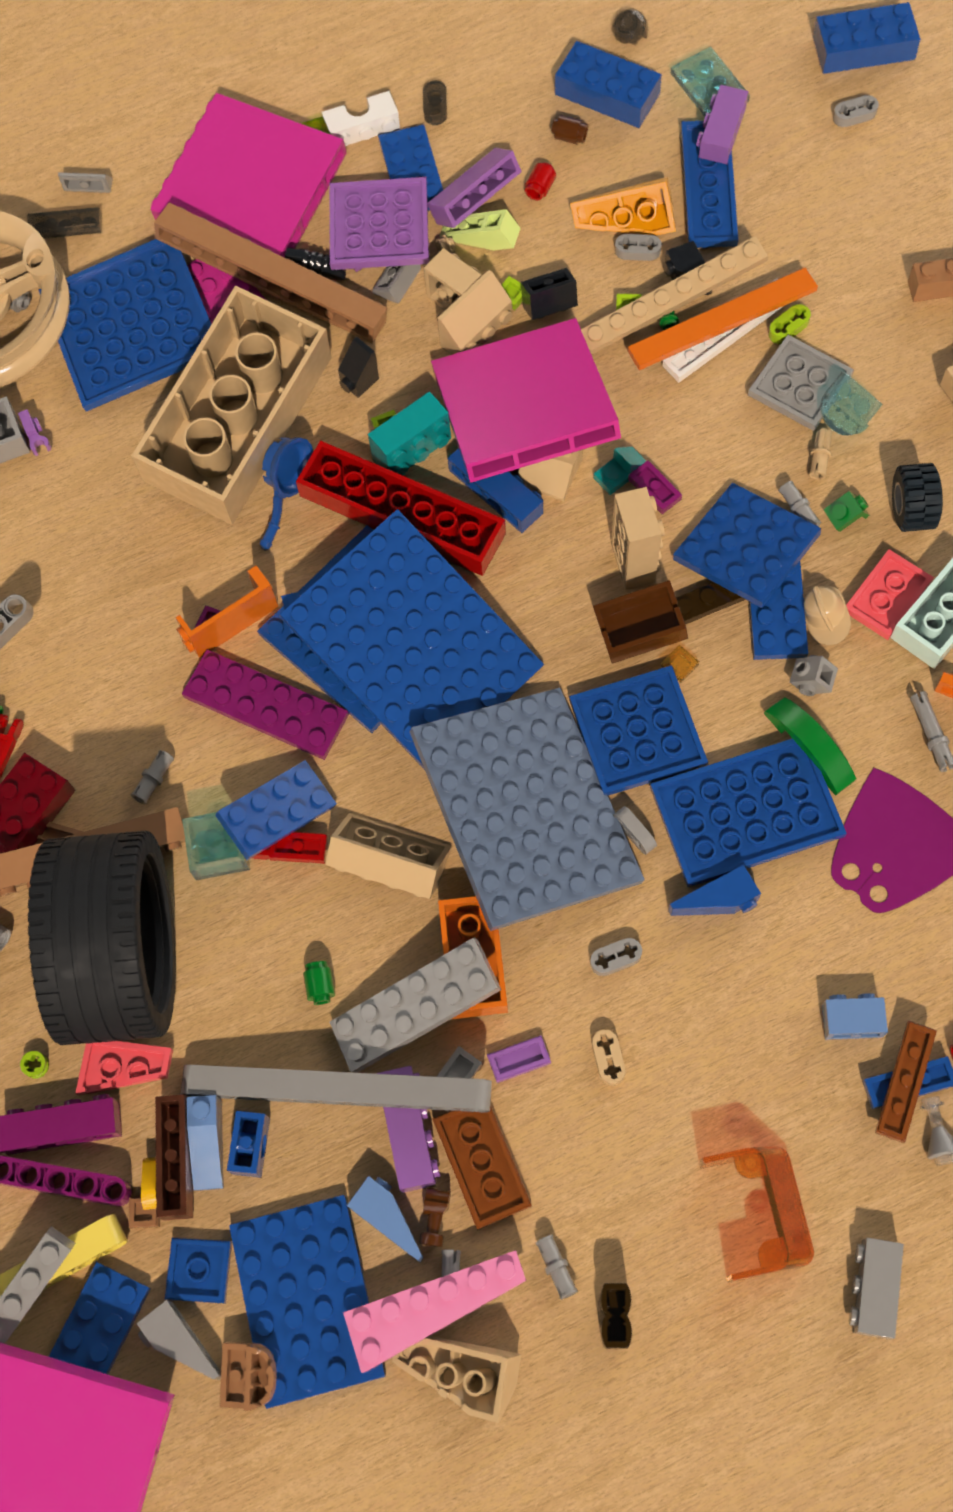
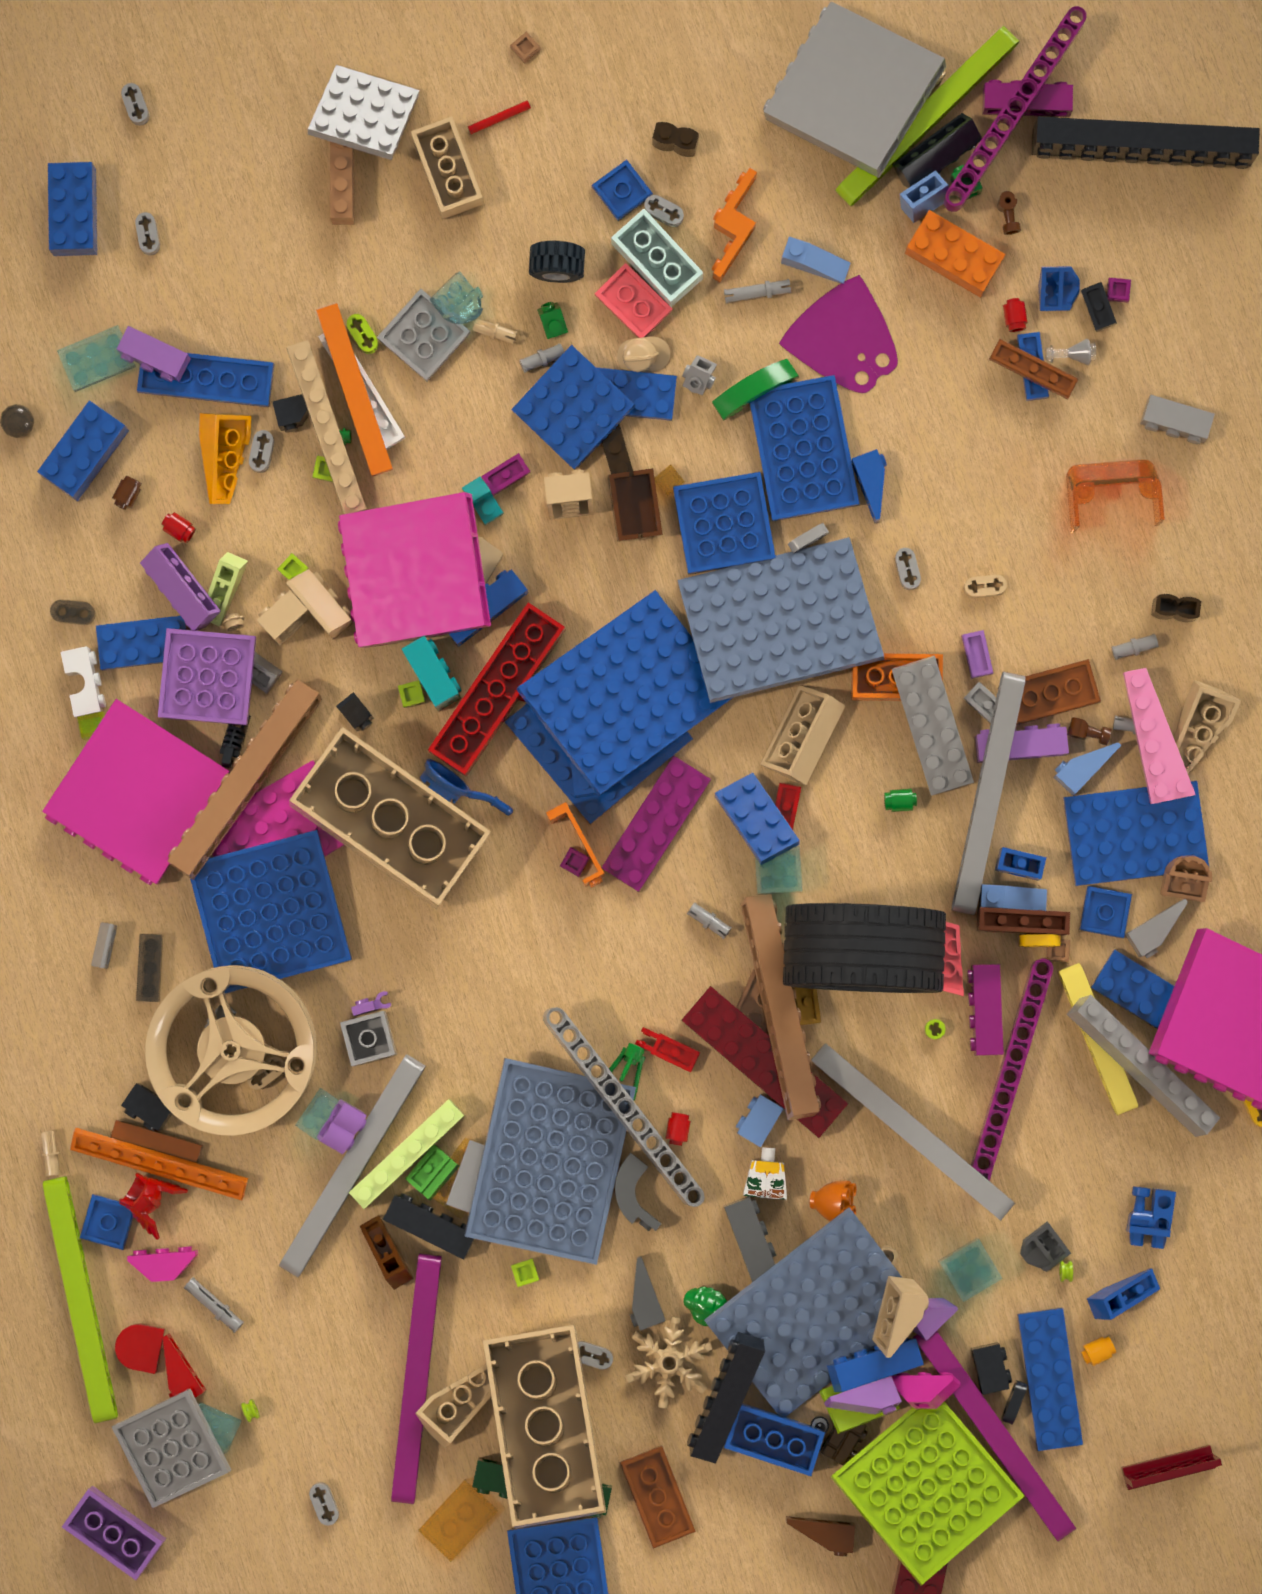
camera: 85 degrees left, 15 degrees up
(549, 293) = (304, 535): black brick -> none
(854, 1017) = (979, 397): medium blue brick -> none

